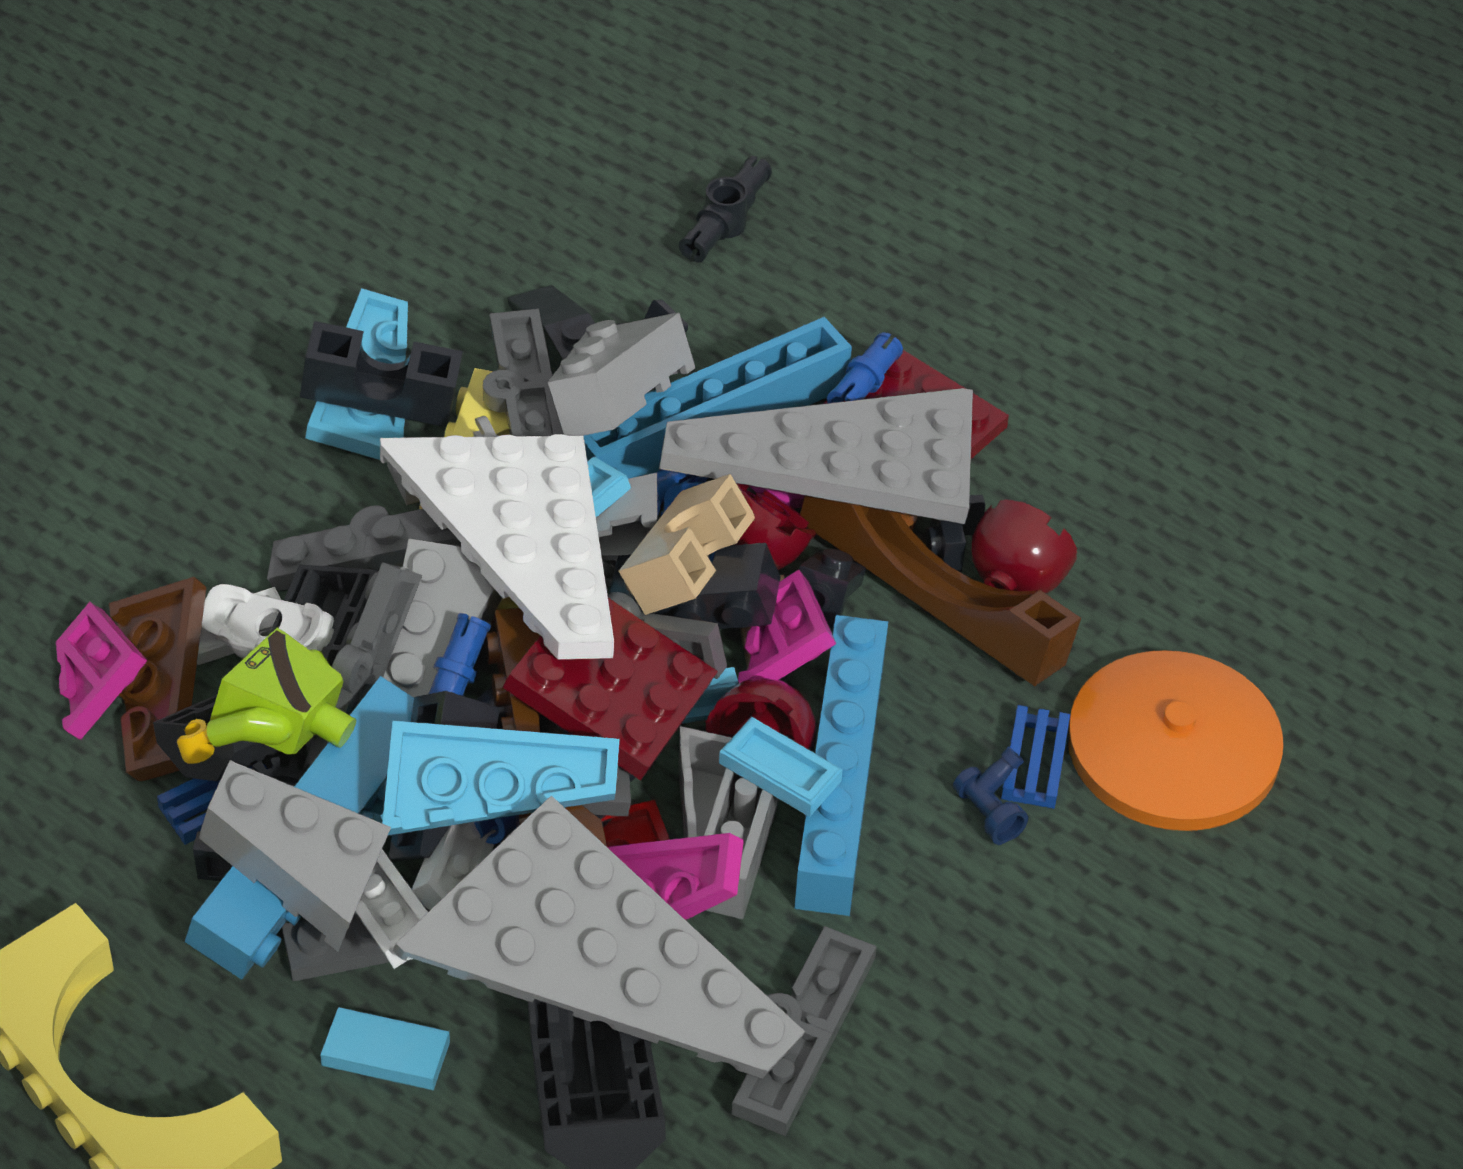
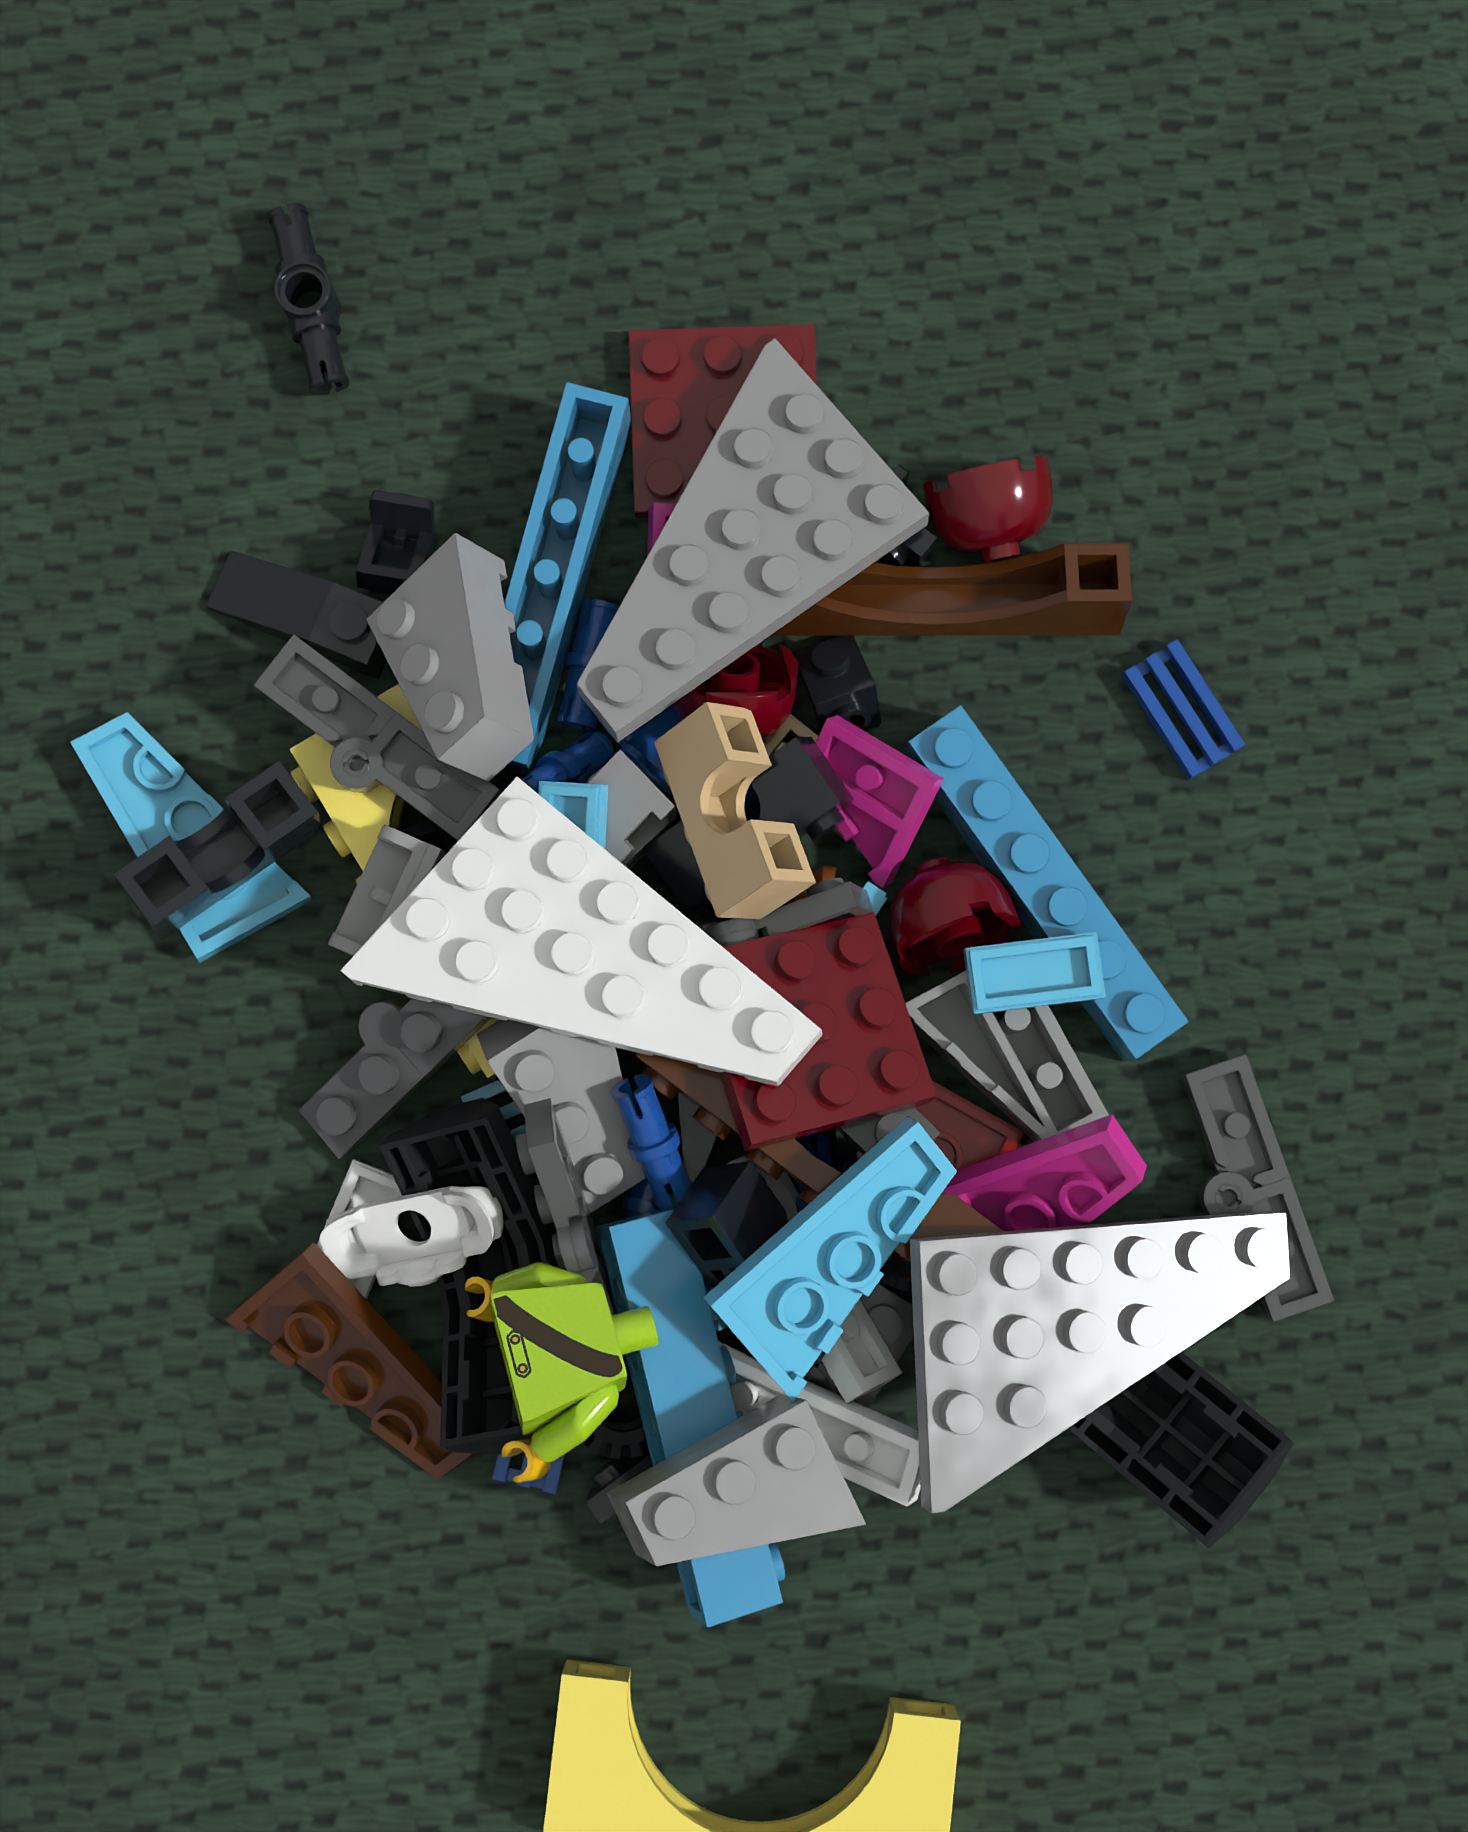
camera: 40 degrees left, 35 degrees up
(95, 667) = (292, 1404): dark pink wing -> none
(385, 1048) = (919, 1542): medium azure tile -> none
(867, 371) = (656, 409): blue pin -> none
(1002, 820) = (1176, 794): dark blue piece -> none
(1175, 740) = (1281, 577): orange dish -> none

